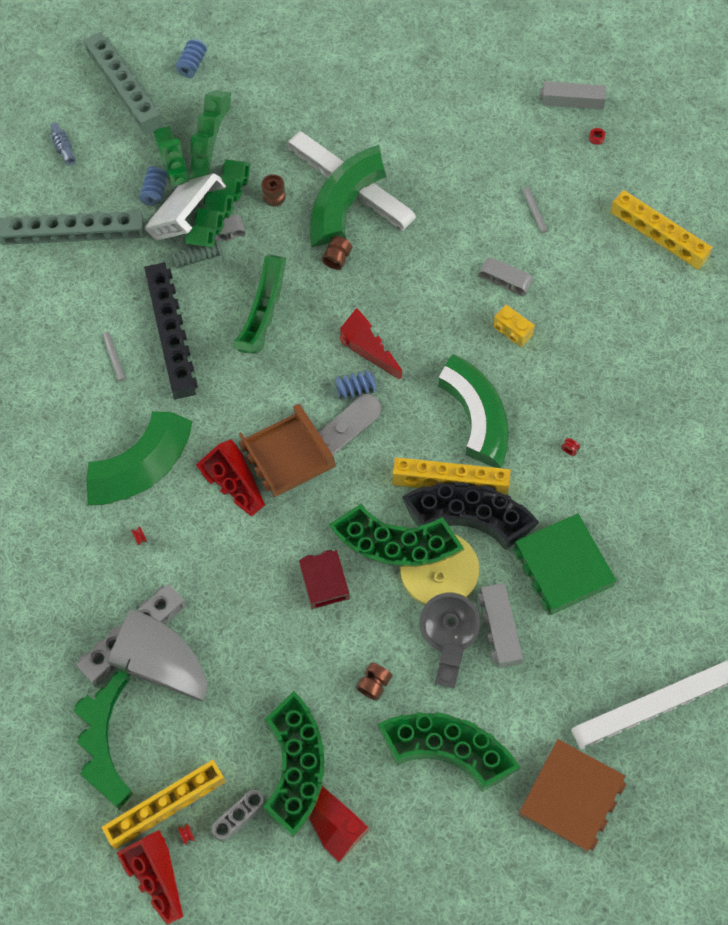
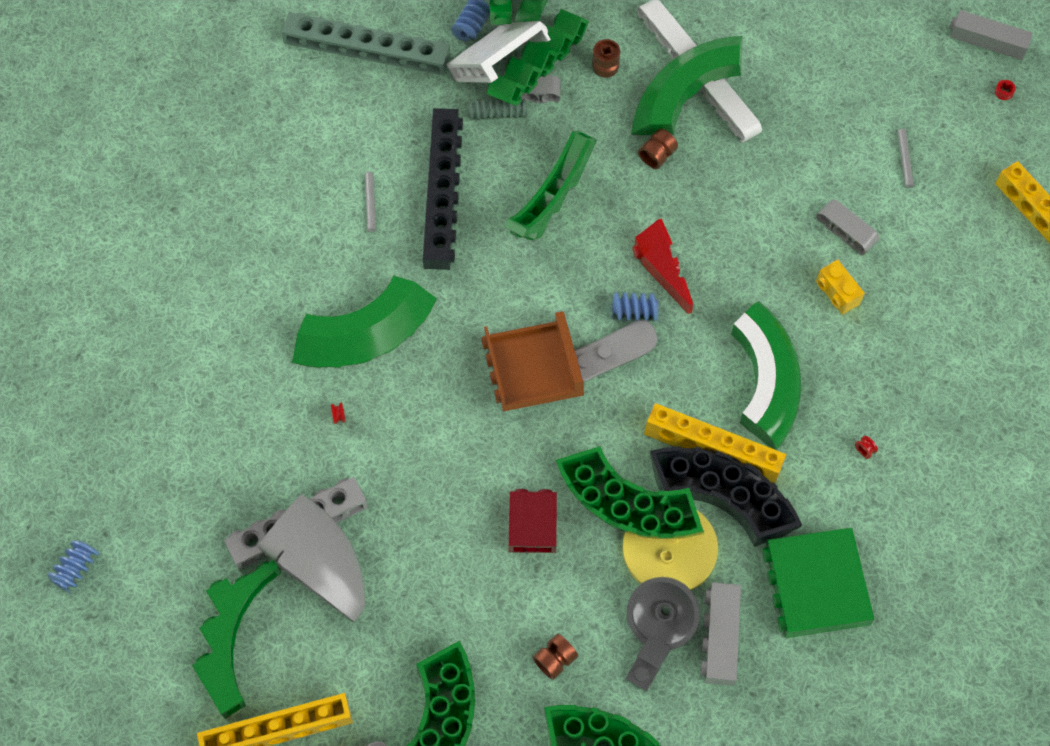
camera: 15 degrees right, 0 degrees up
(230, 471) = (462, 367): red wedge -> none

